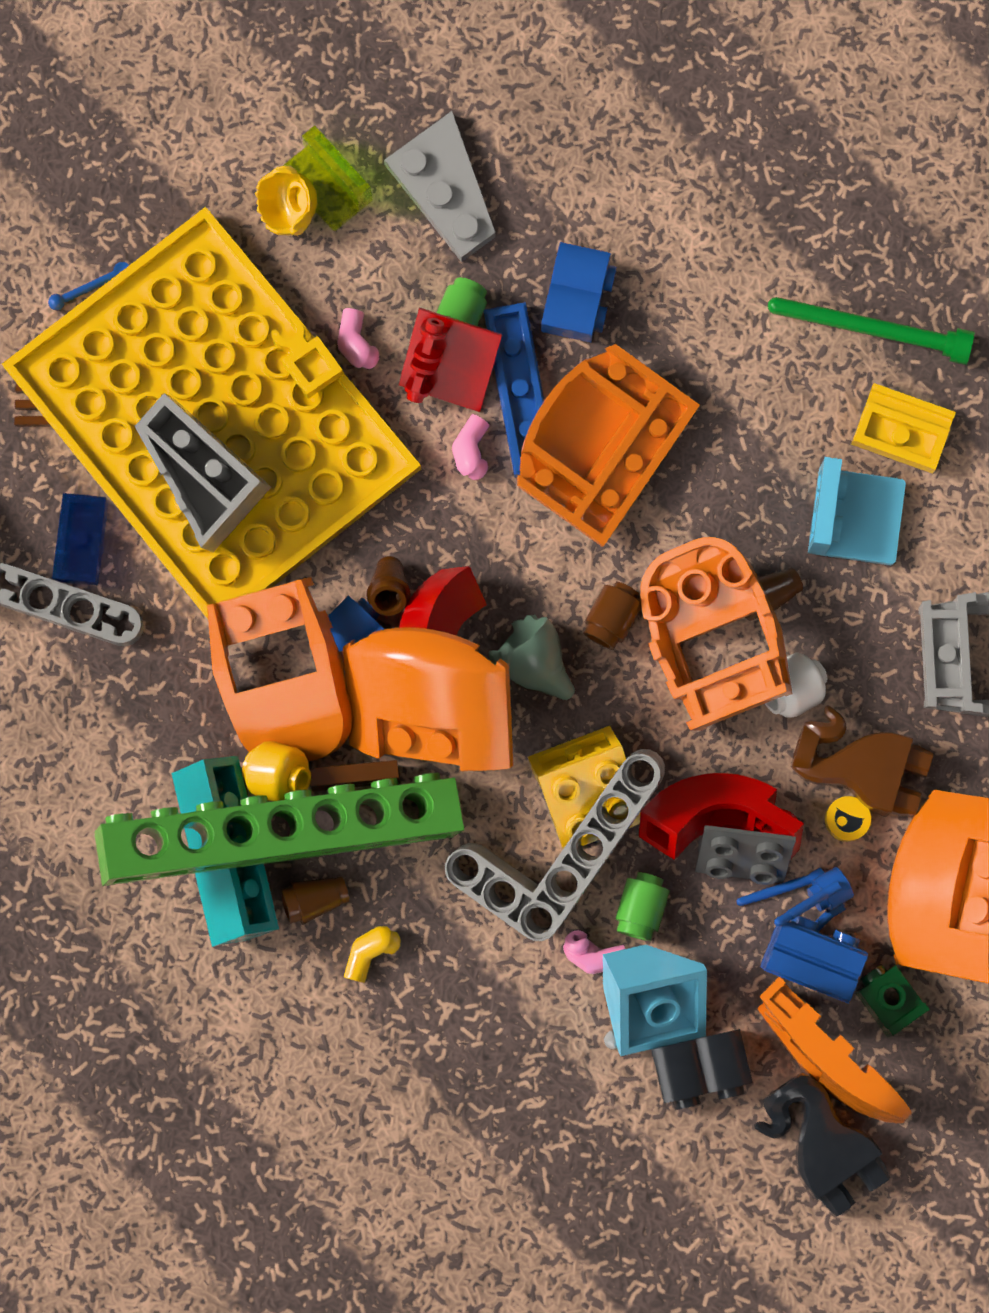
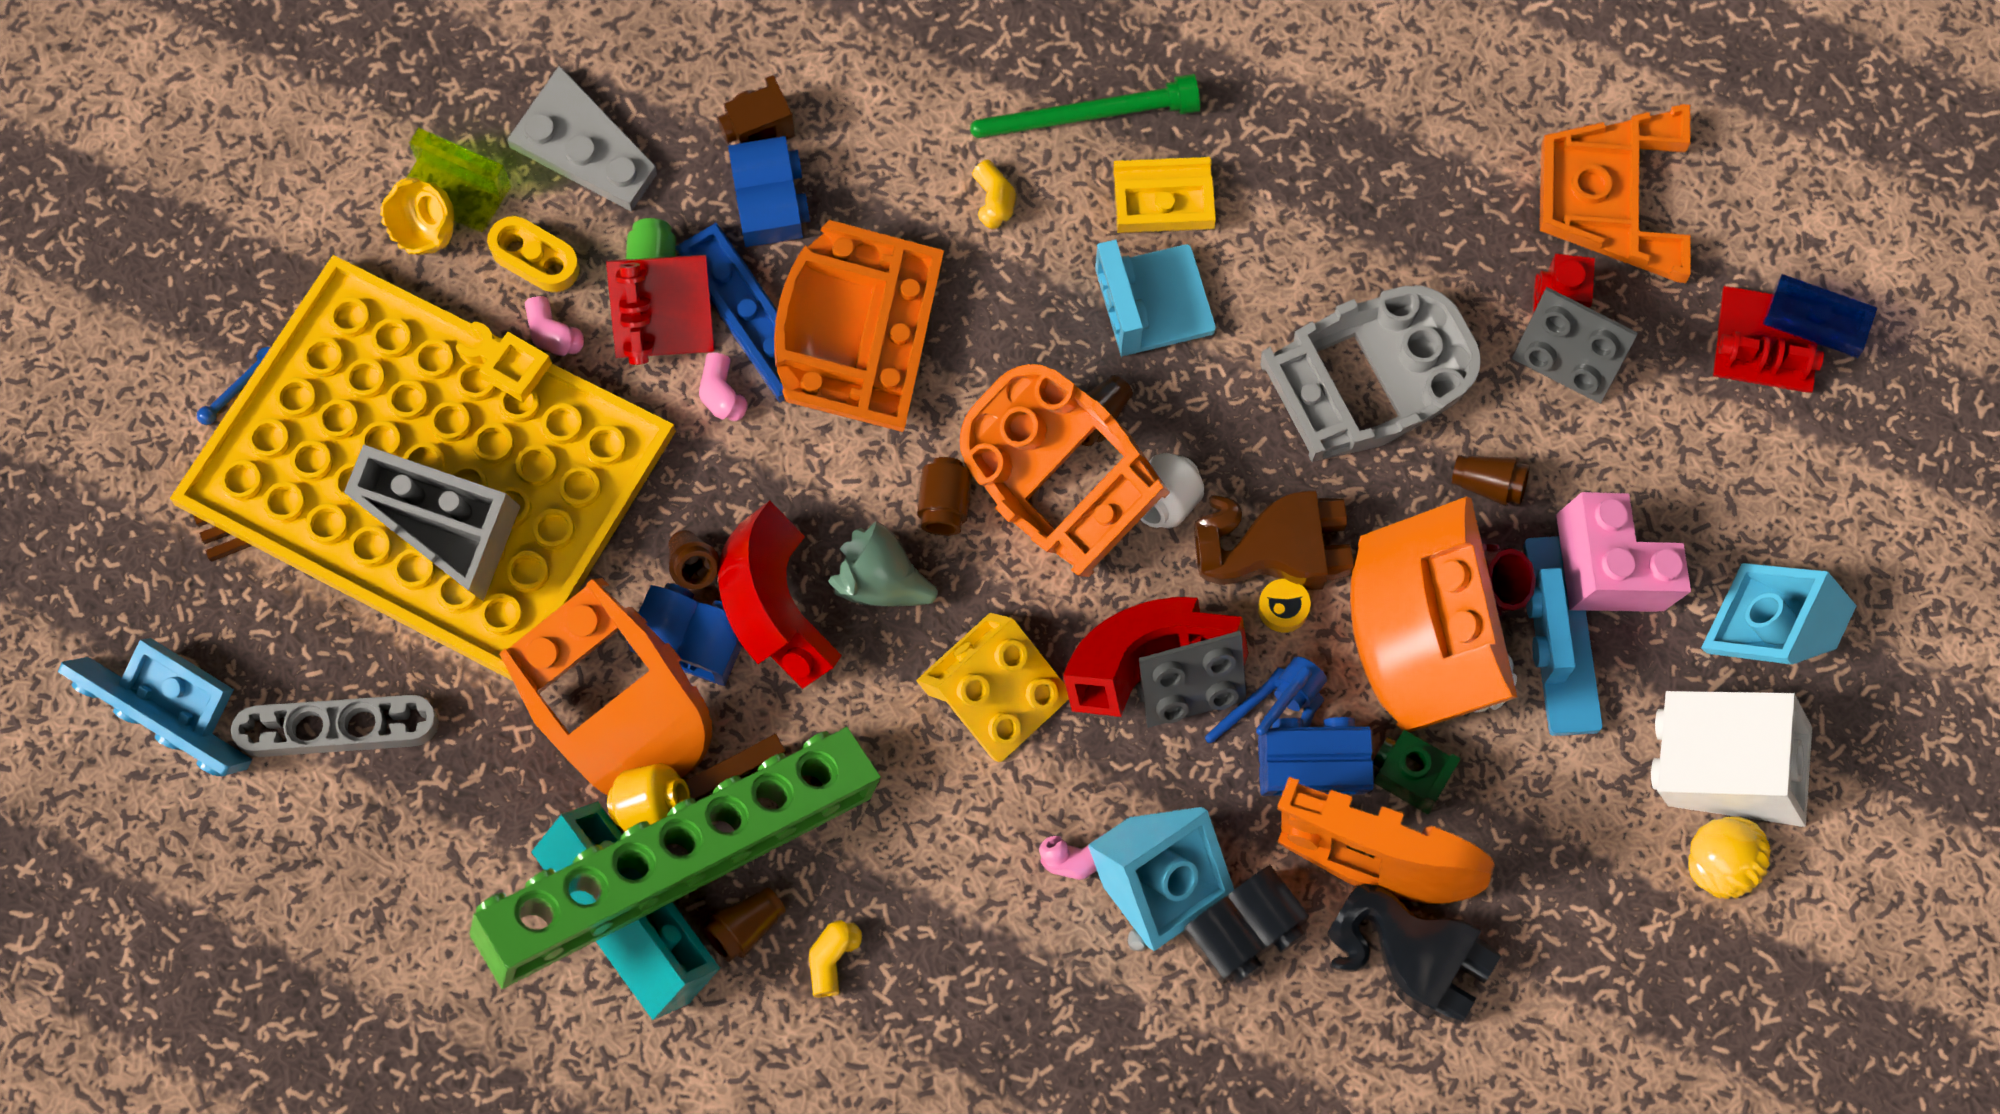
camera: 25 degrees left, 10 degrees down
(80, 539) = (329, 647): clear blue plate -> none
(368, 271) = (535, 256): none -> yellow plate
(429, 699) = (784, 649): orange slope -> none
(571, 859) = (1008, 758): light grey beam -> none
(595, 224) = (757, 115): none -> reddish brown brick
(642, 906) = (1107, 783): bright green brick -> none
(766, 374) = (999, 197): none -> yellow arm

